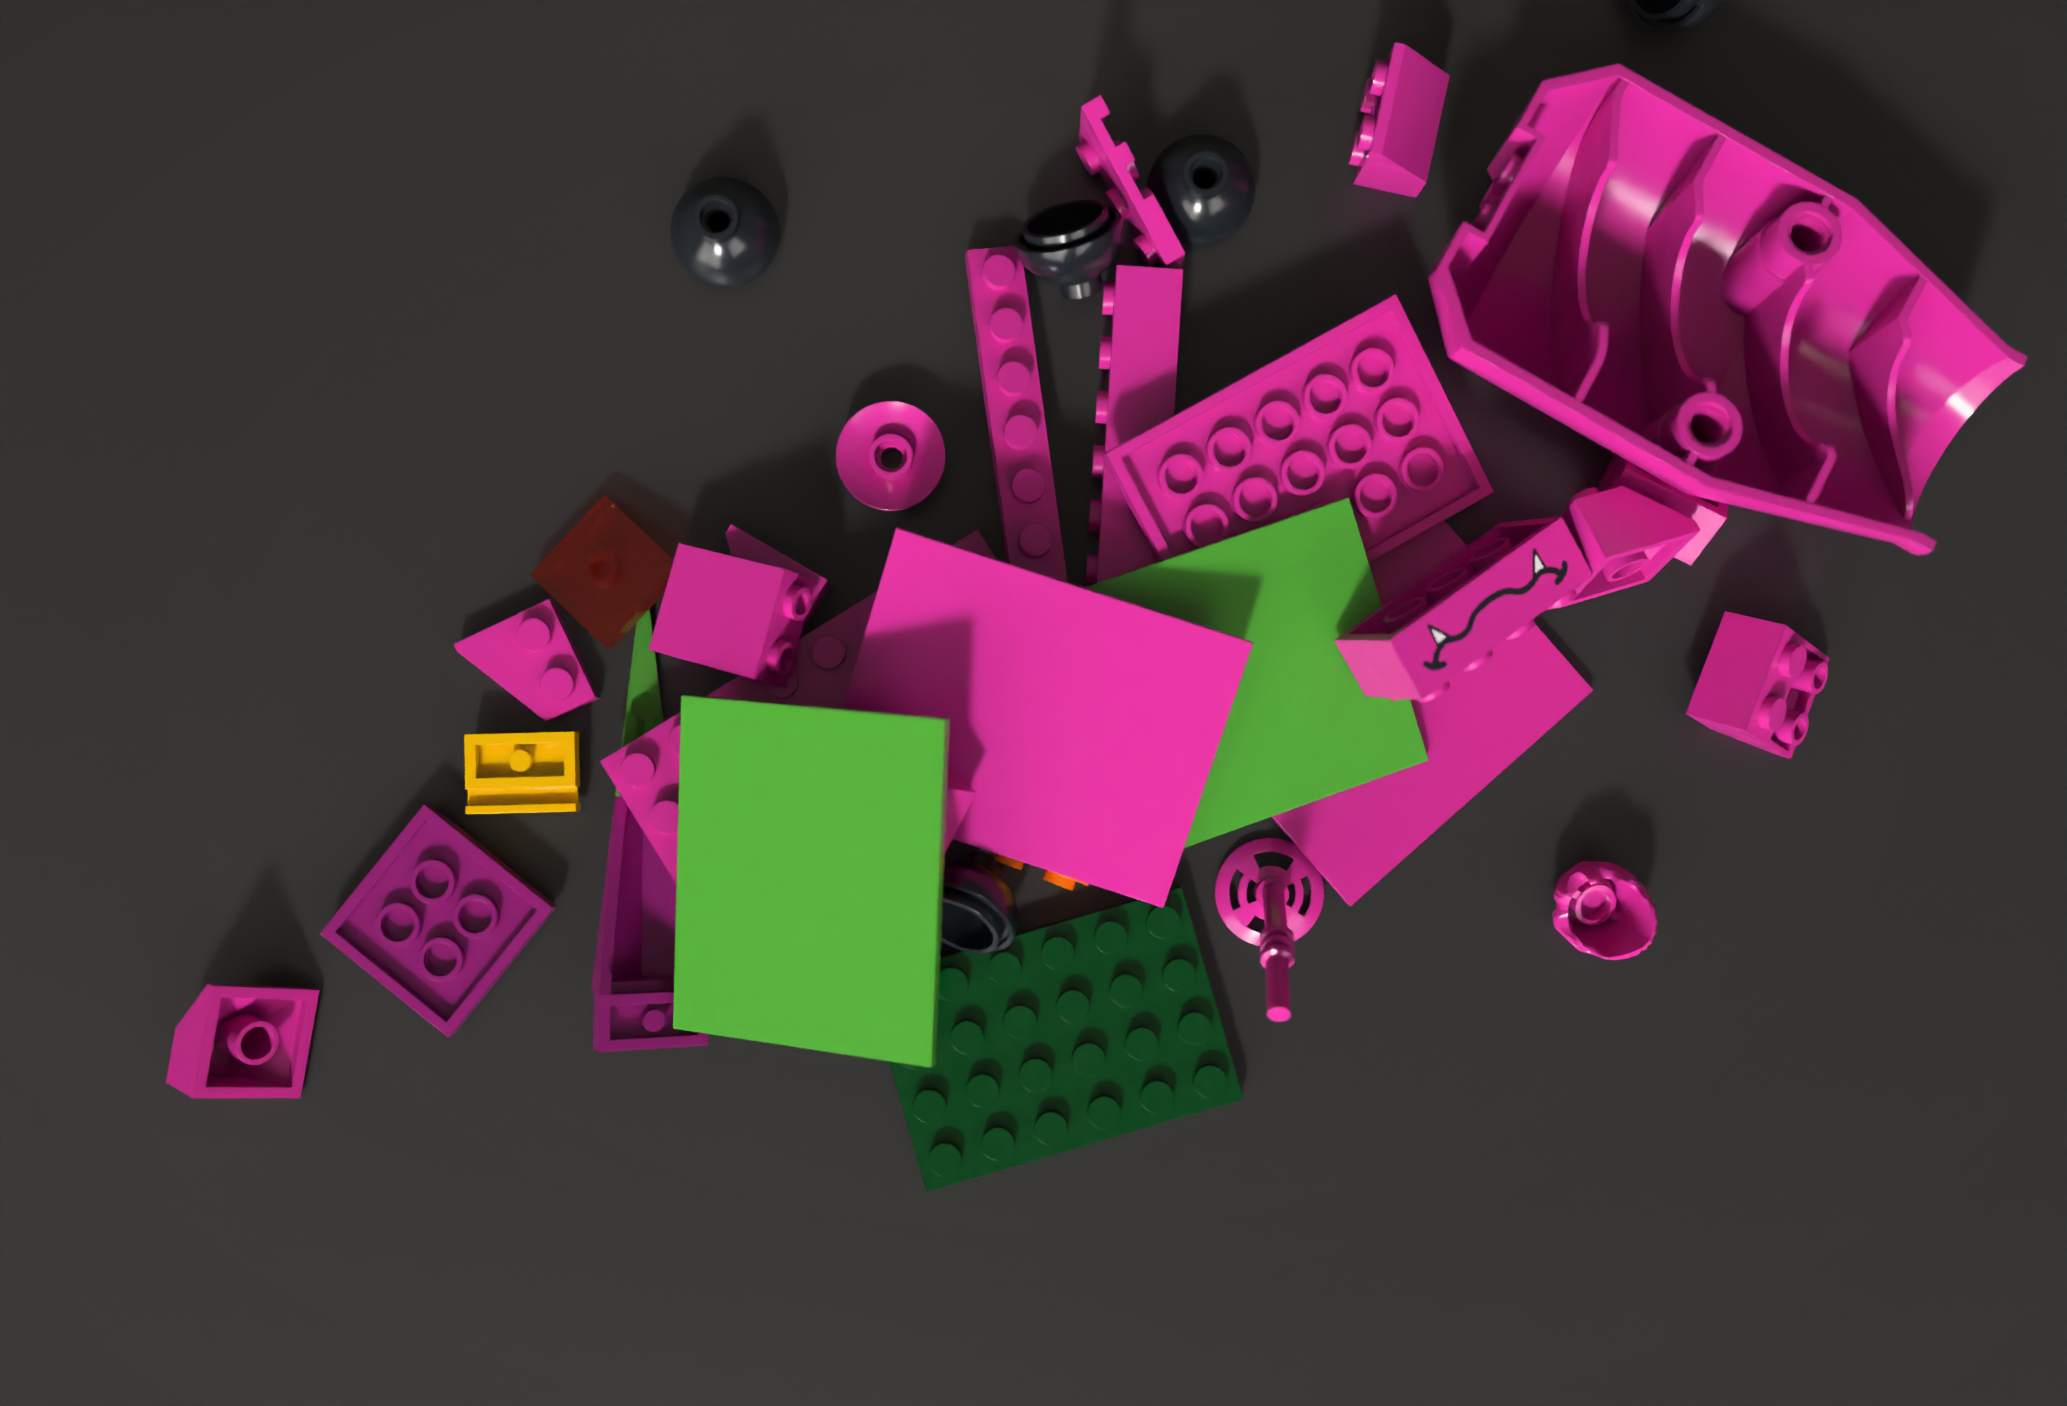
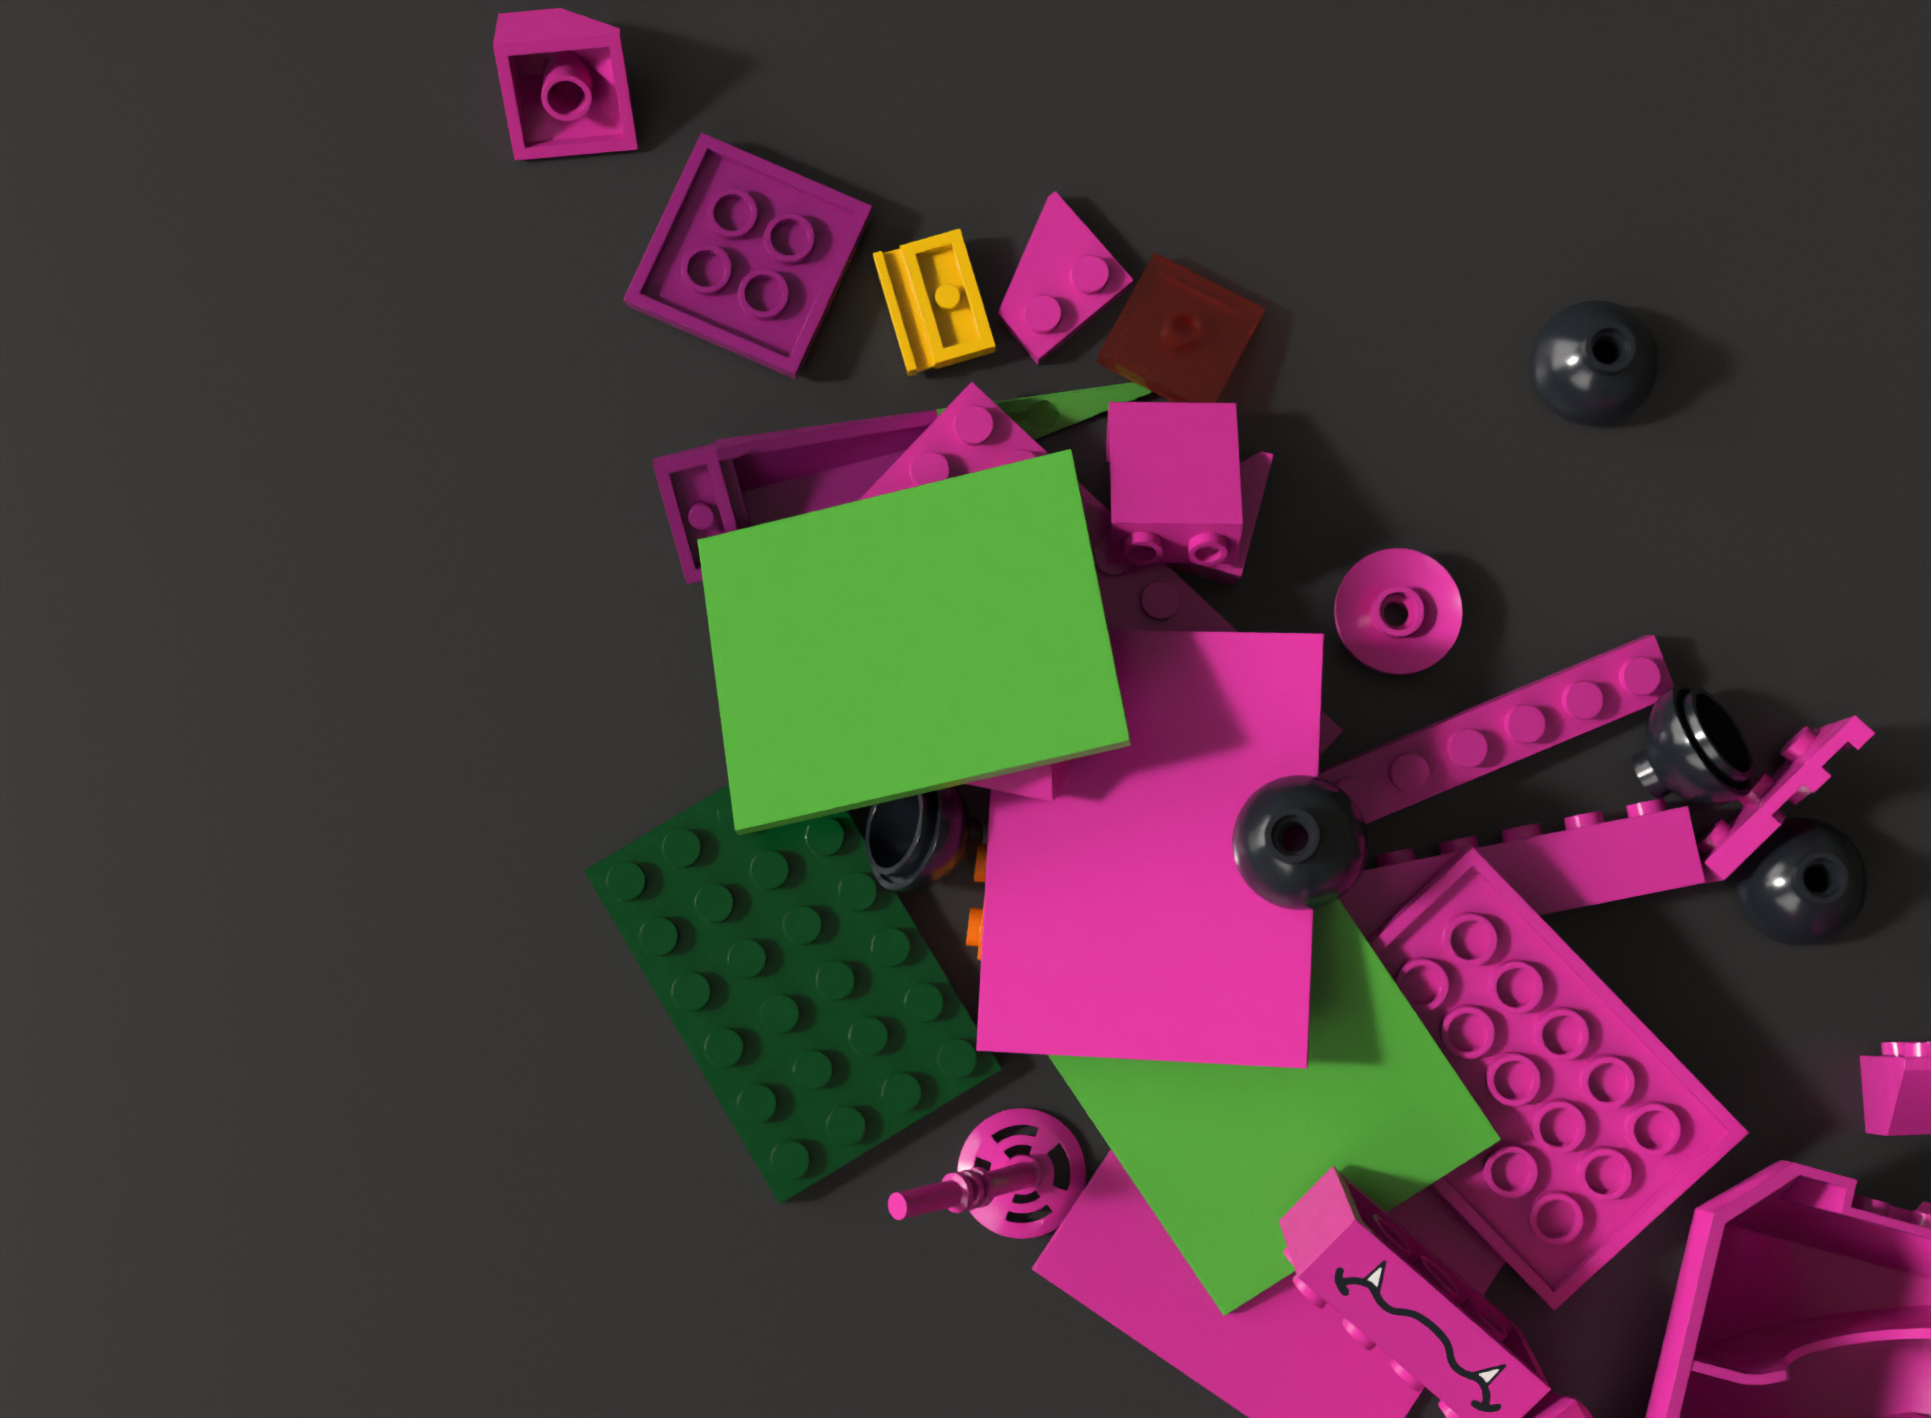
camera: 75 degrees right, 5 degrees down
(1069, 568) = (1328, 861): none -> black piece

